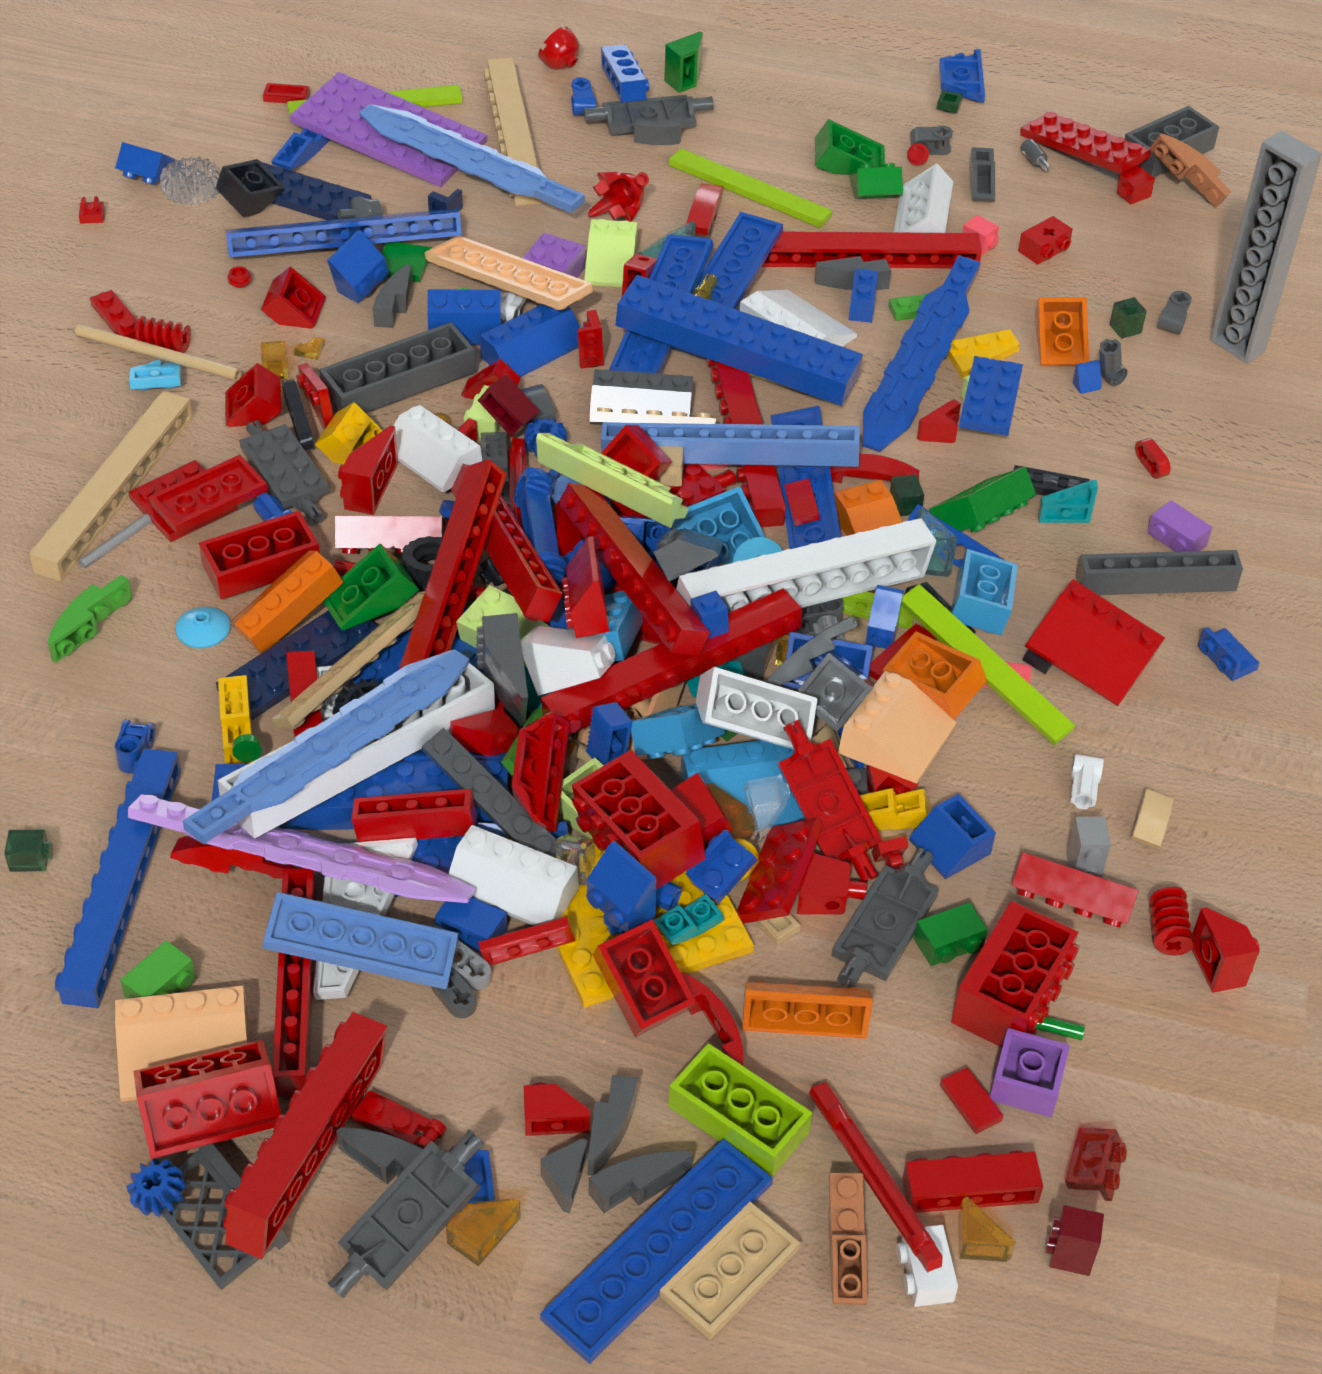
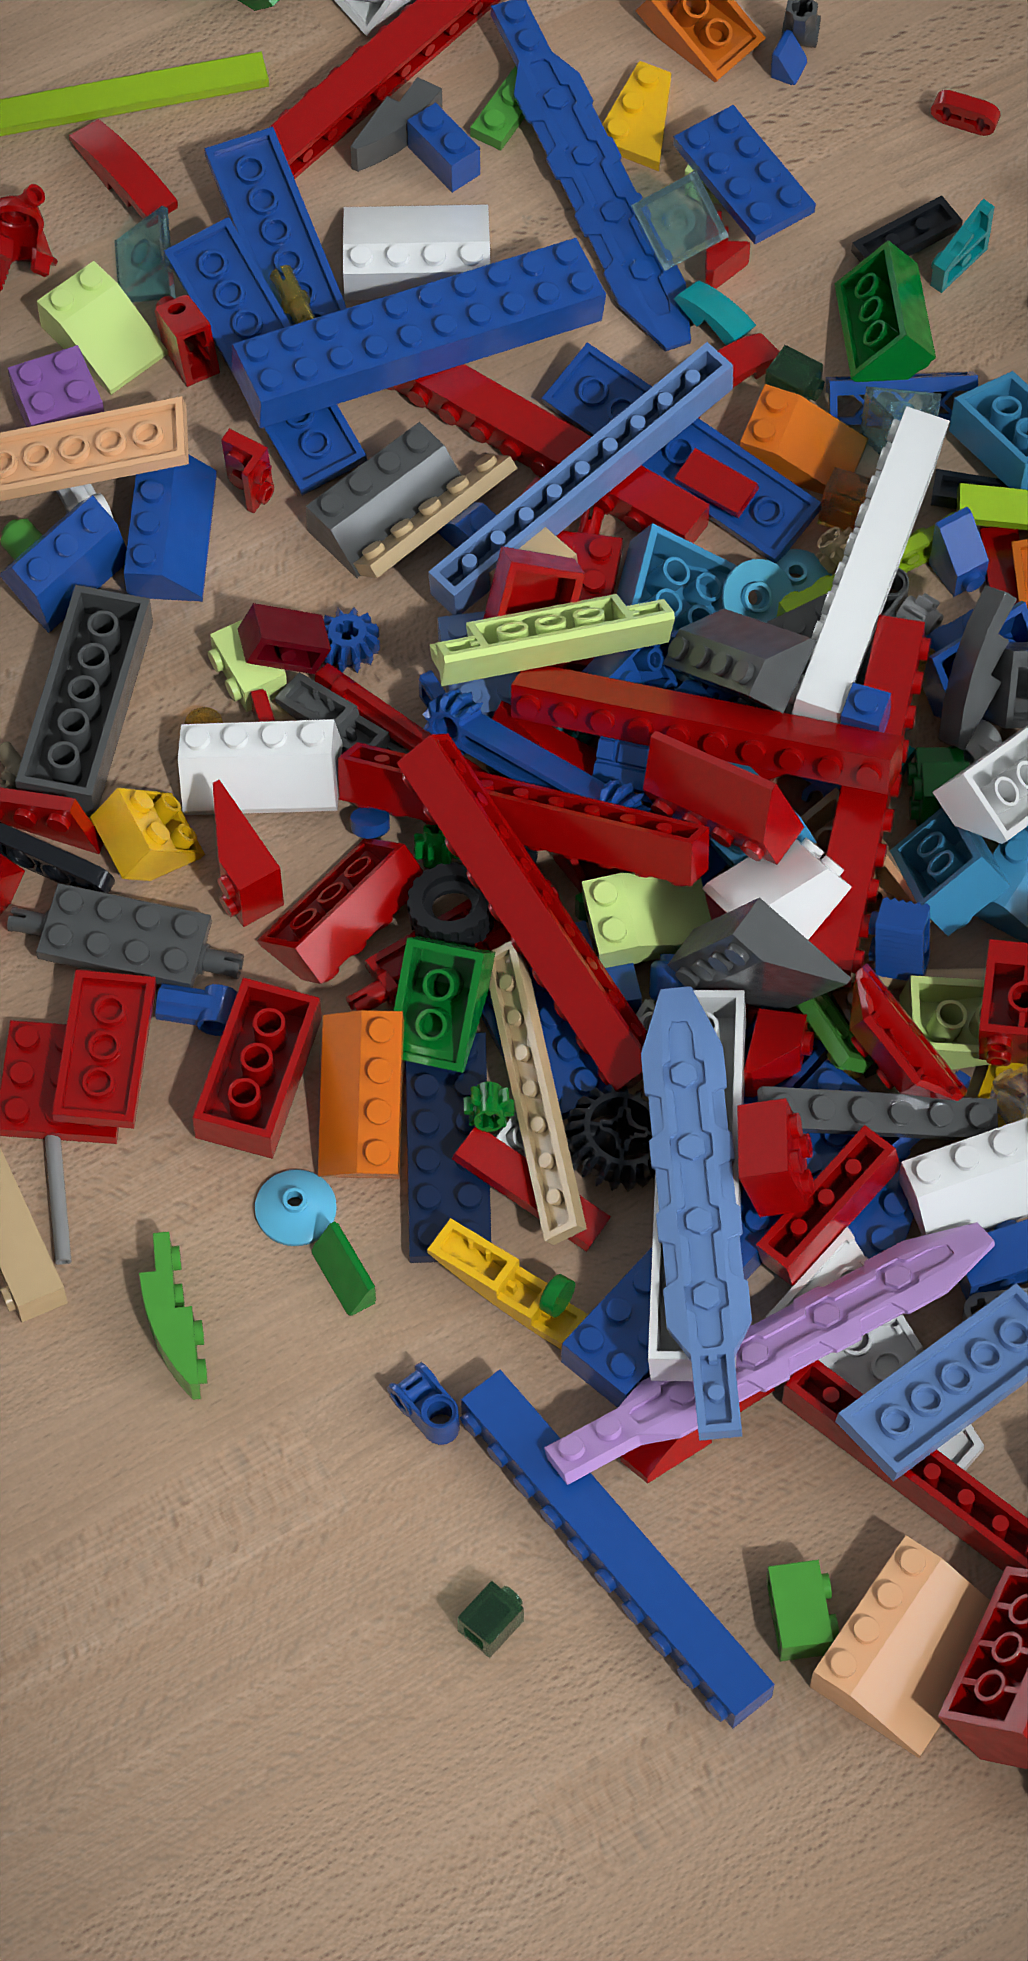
camera: 45 degrees left, 15 degrees up
(184, 665) = (344, 1270): none -> green slope
(327, 646) = (488, 1106): none -> green gear
(402, 758) = (774, 1157): none -> red piece
(487, 377) = (201, 614): red slope -> none
(540, 398) = (279, 594): dark grey slope -> none
(904, 443) = (707, 304): none -> teal slope
(929, 386) = (679, 221): none -> clear light blue slope

